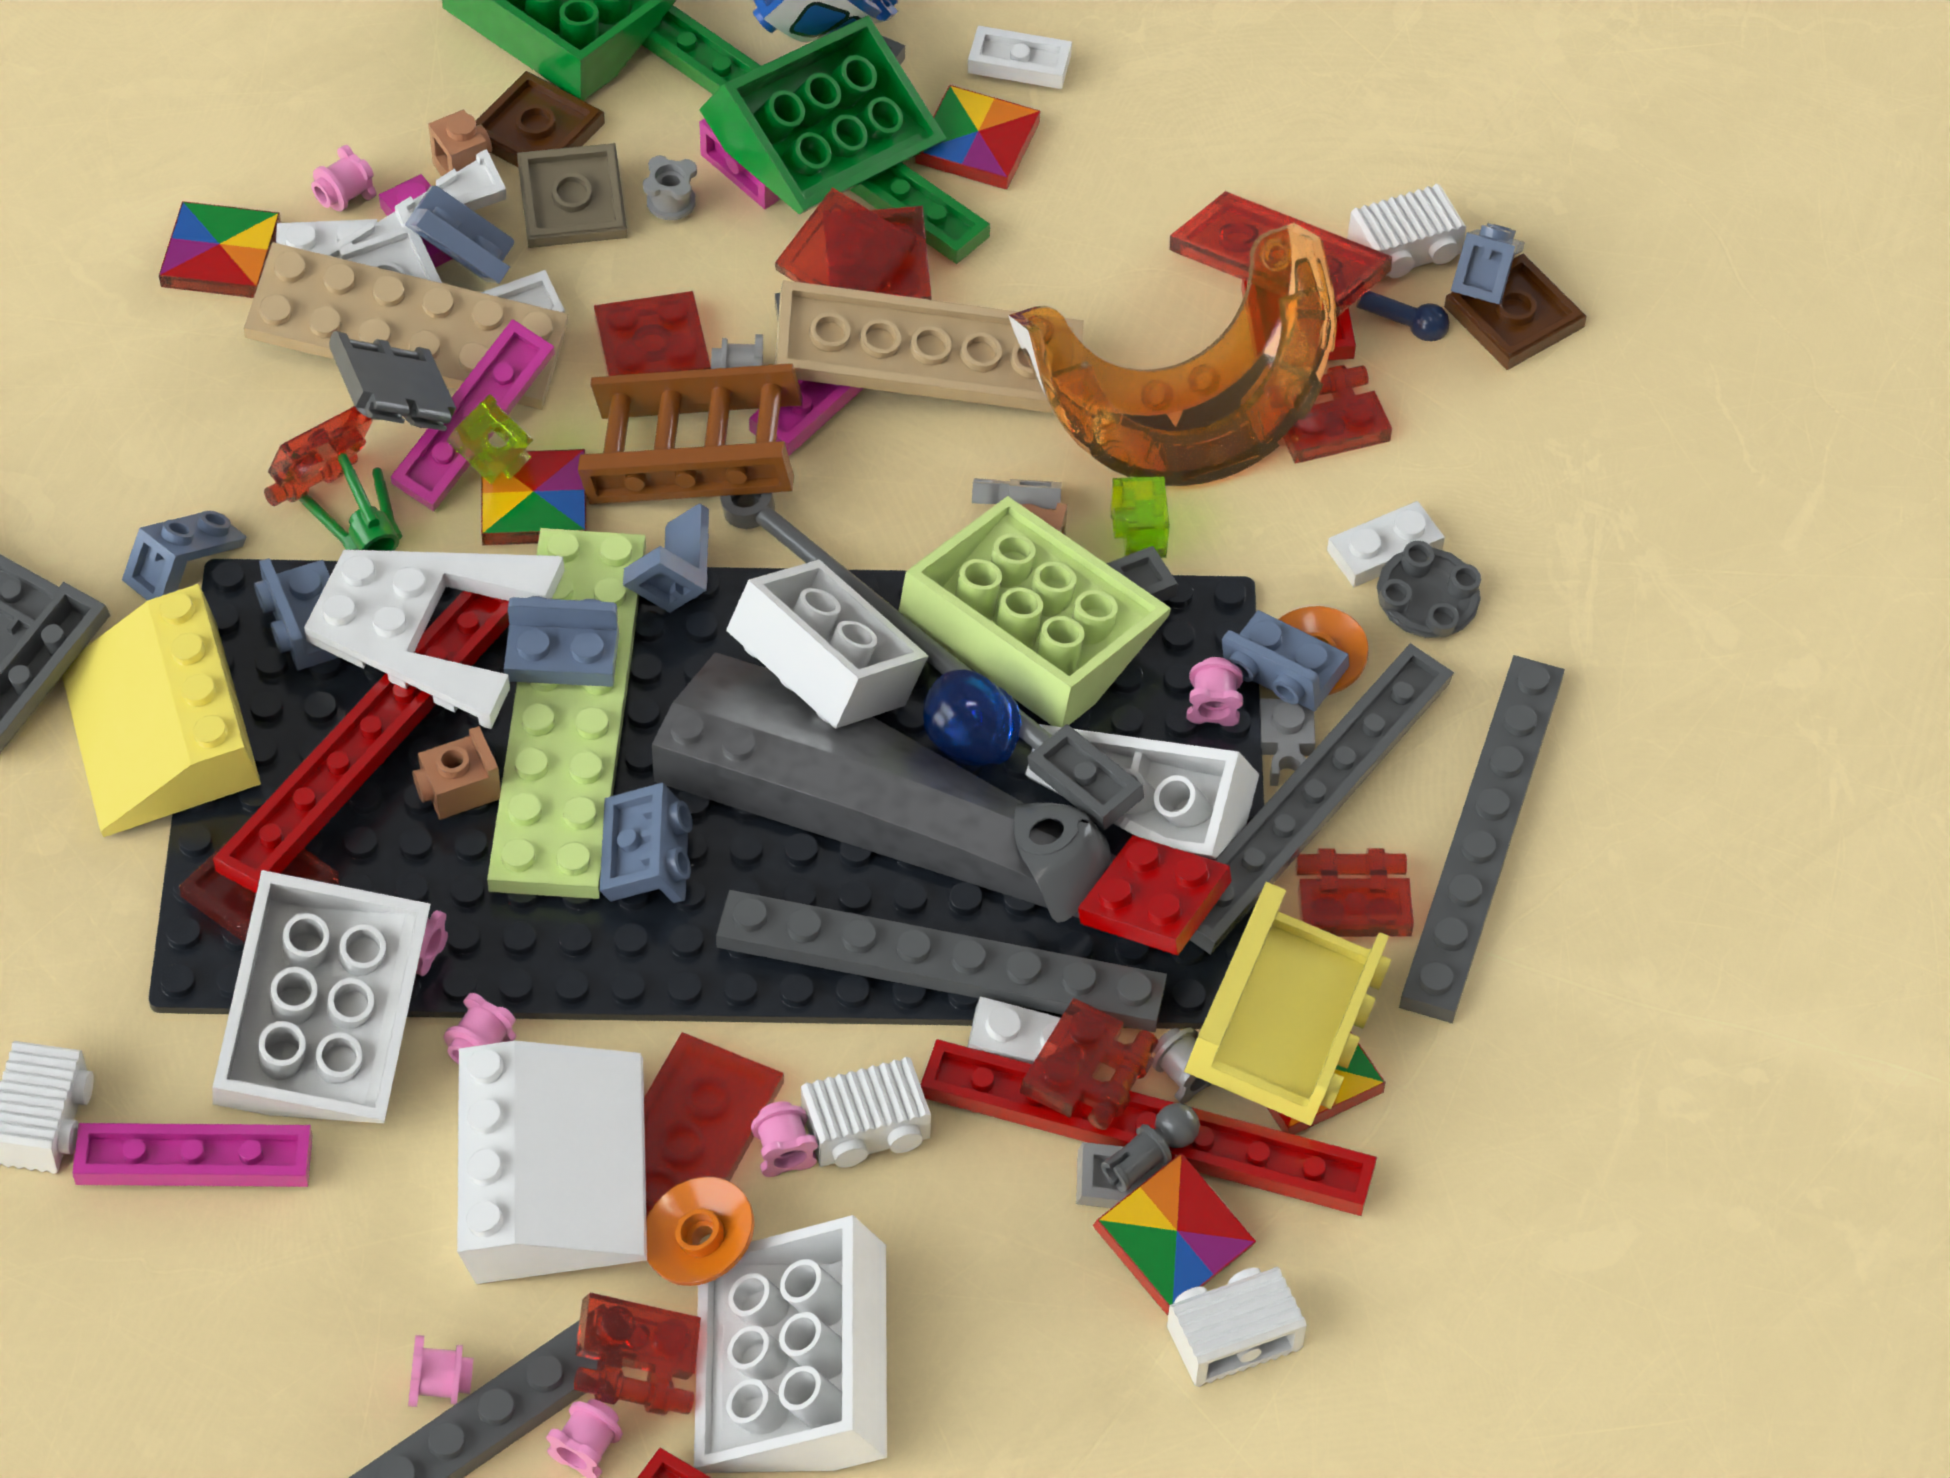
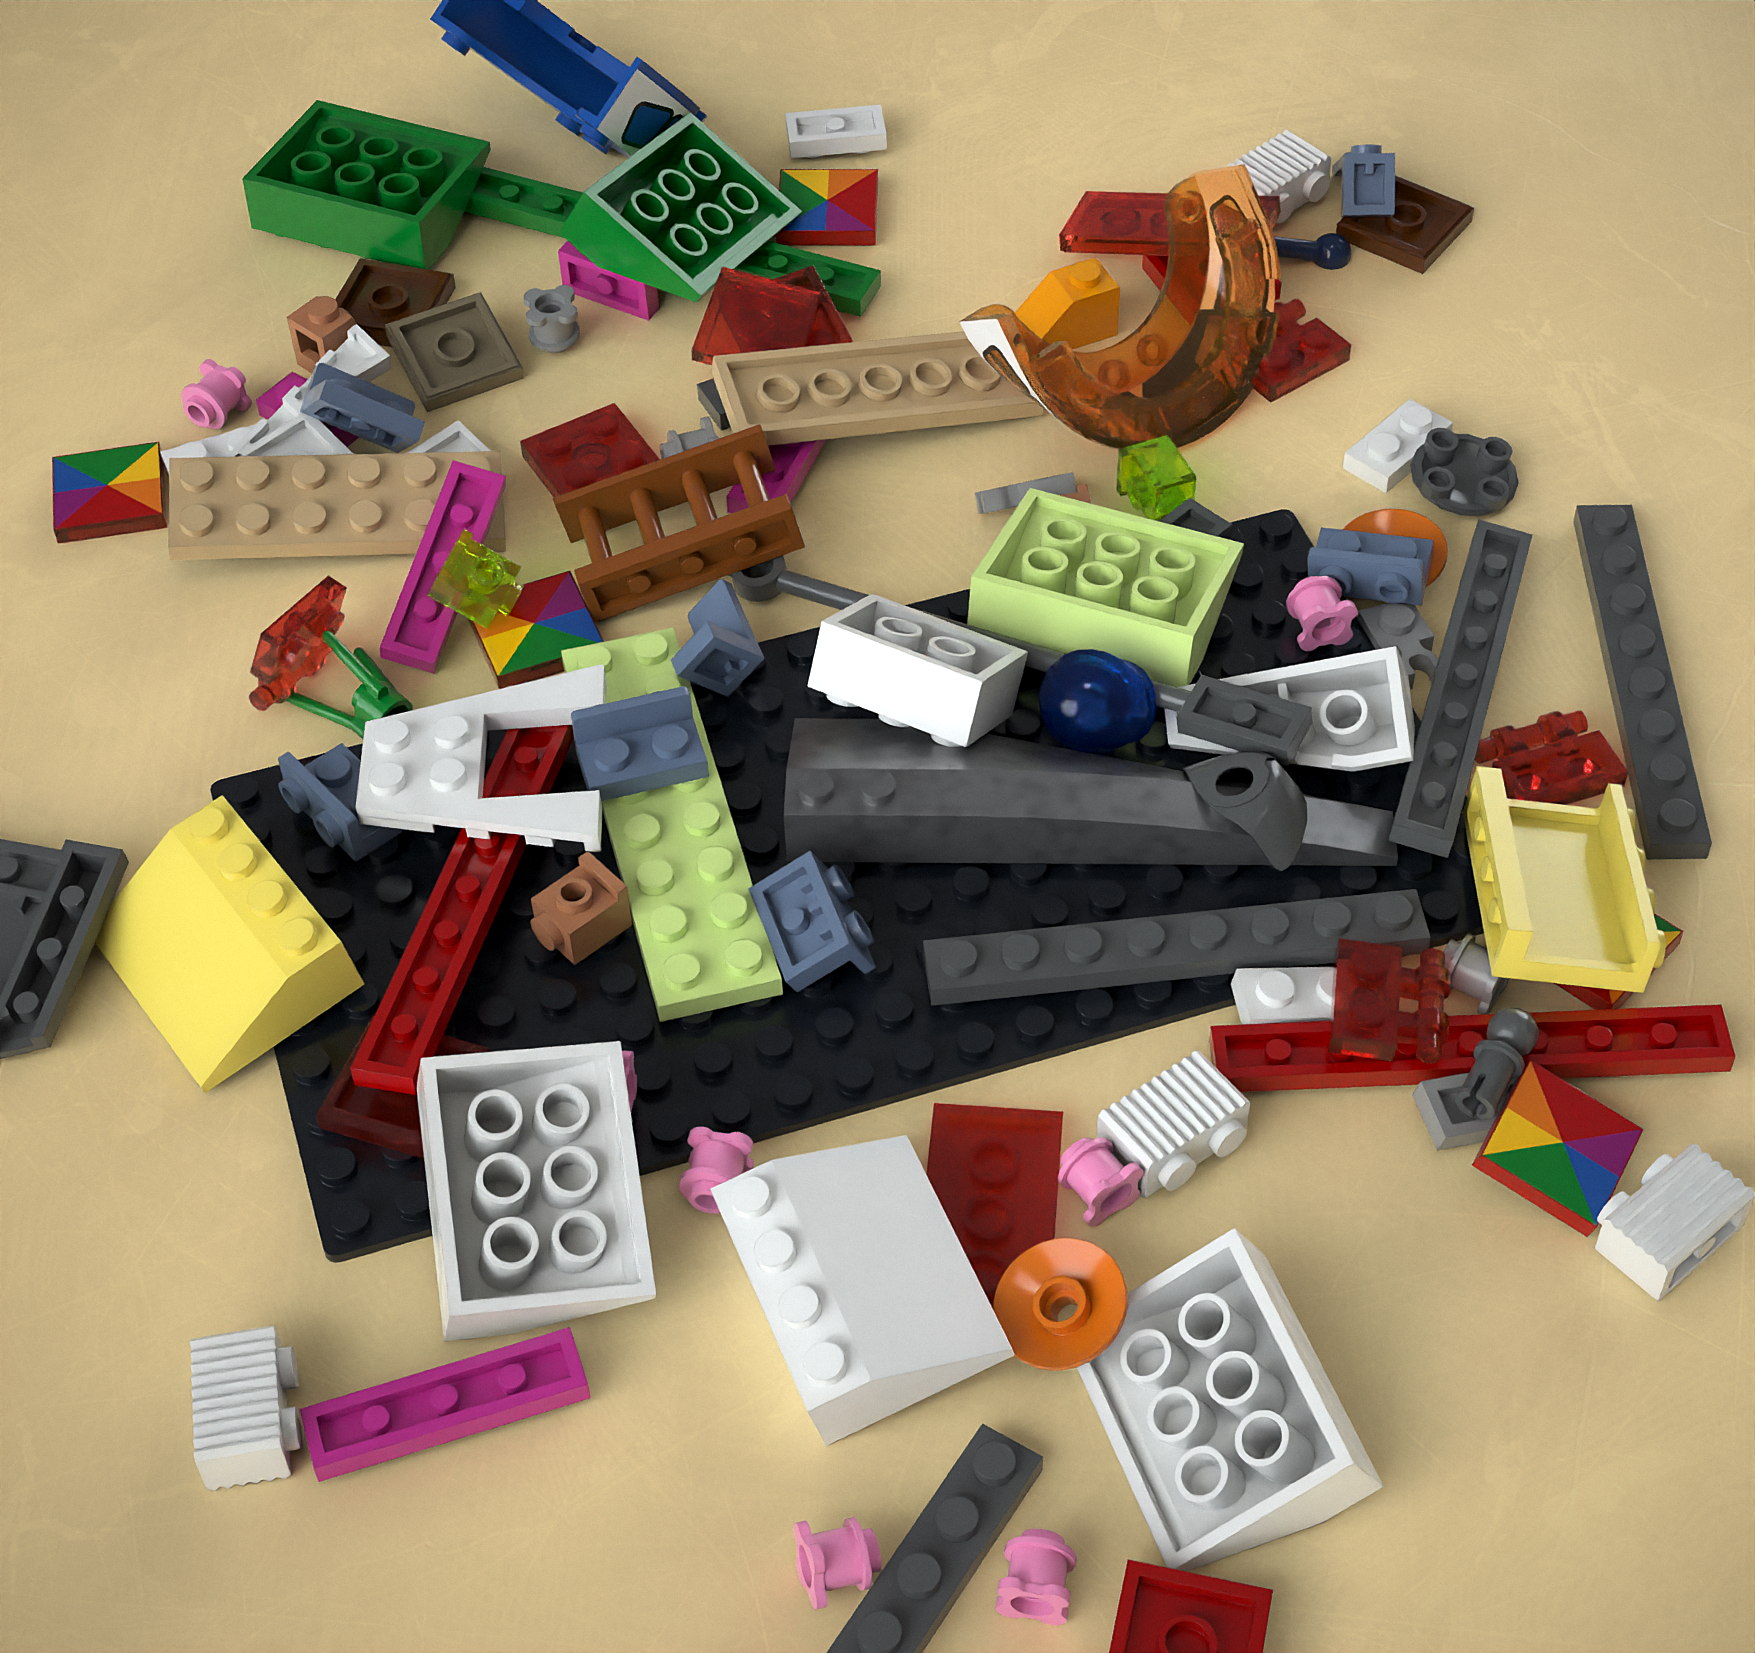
camera: 15 degrees left, 5 degrees down
(165, 548) = (165, 781): sand blue bracket -> none
(393, 382) = (353, 549): dark grey plate -> none
(637, 1338) = (1052, 1443): clear red plate -> none
(1140, 318) = (1074, 305): none -> light orange slope
(1155, 894) = (1372, 812): red plate -> none

